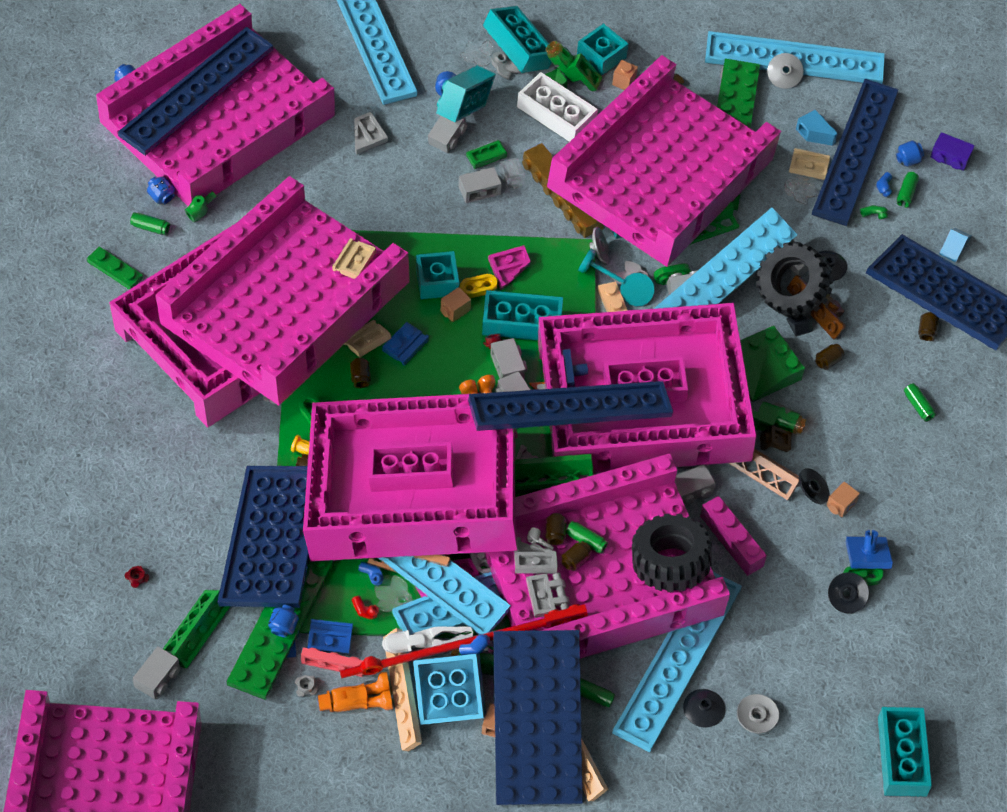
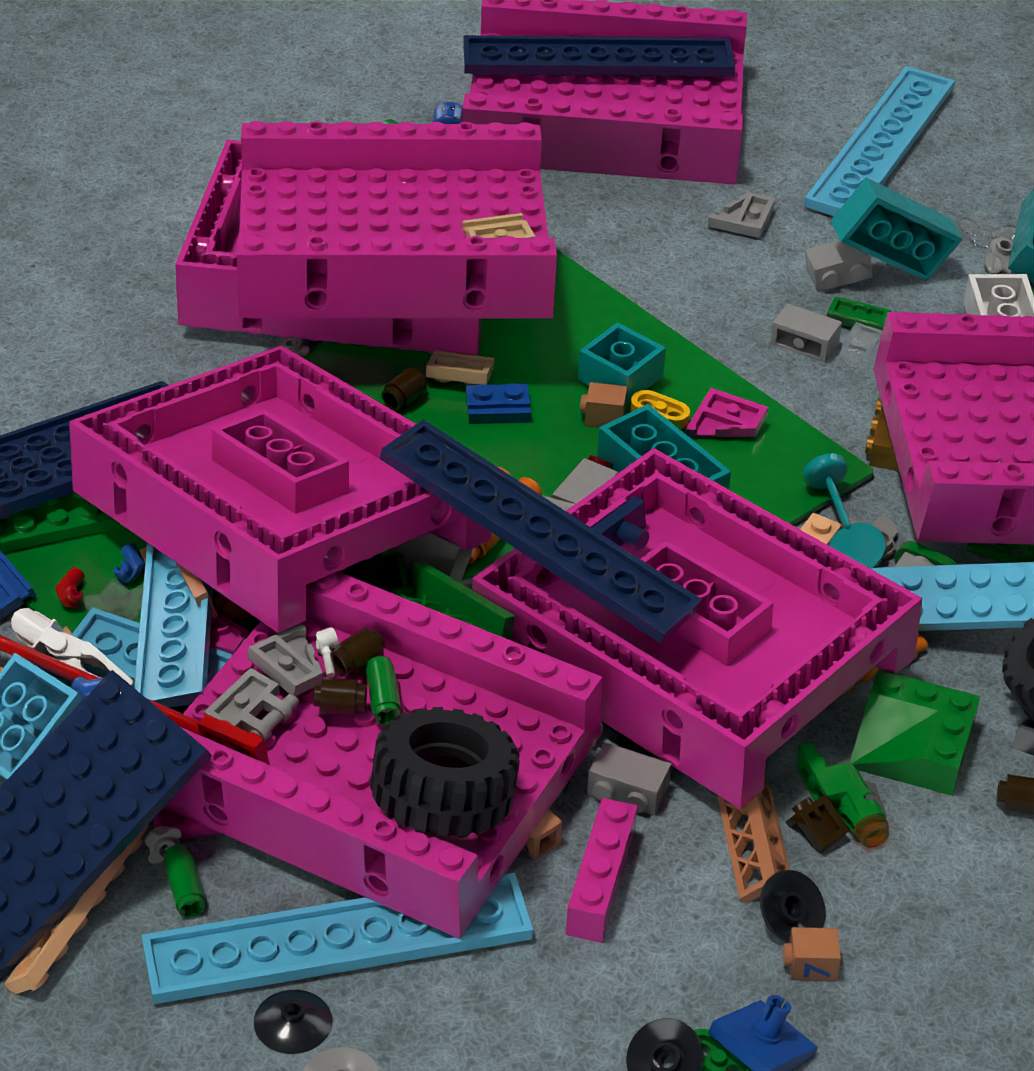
camera: 50 degrees right, 15 degrees down
(600, 245) = (867, 472): light grey dish -> none

